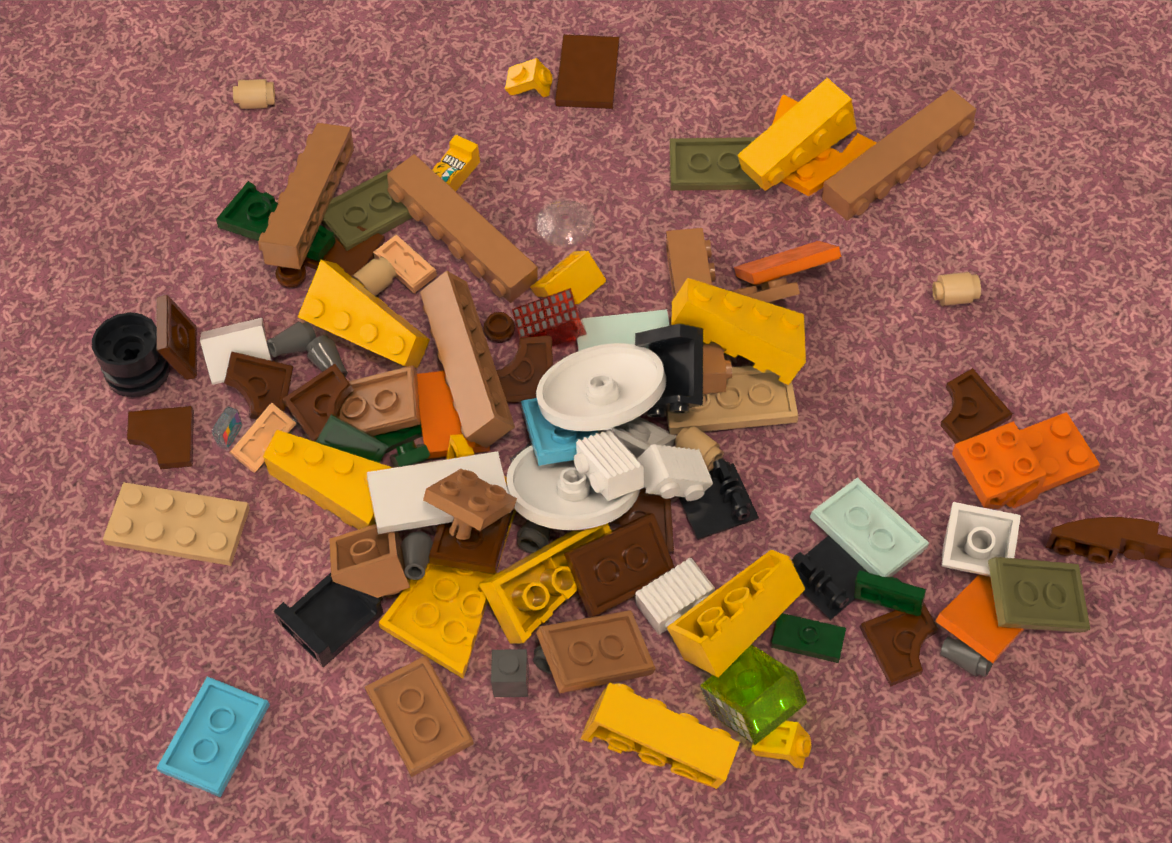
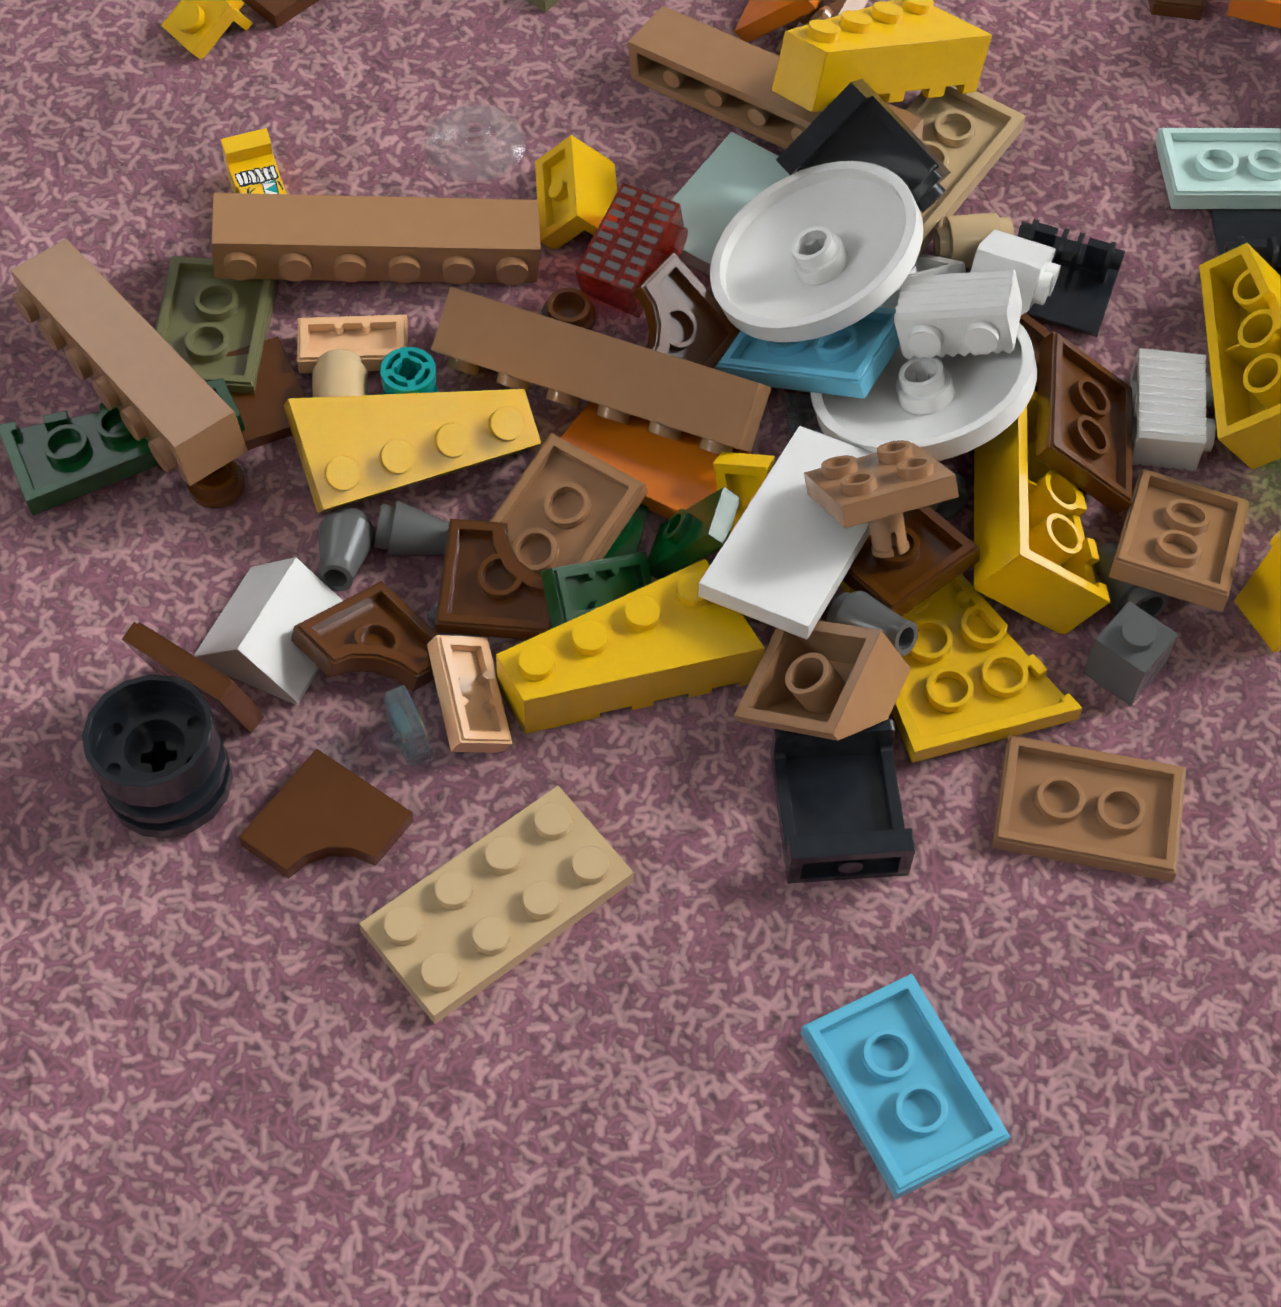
camera: 55 degrees left, 0 degrees up
(400, 297) = (408, 372): none -> teal wheel

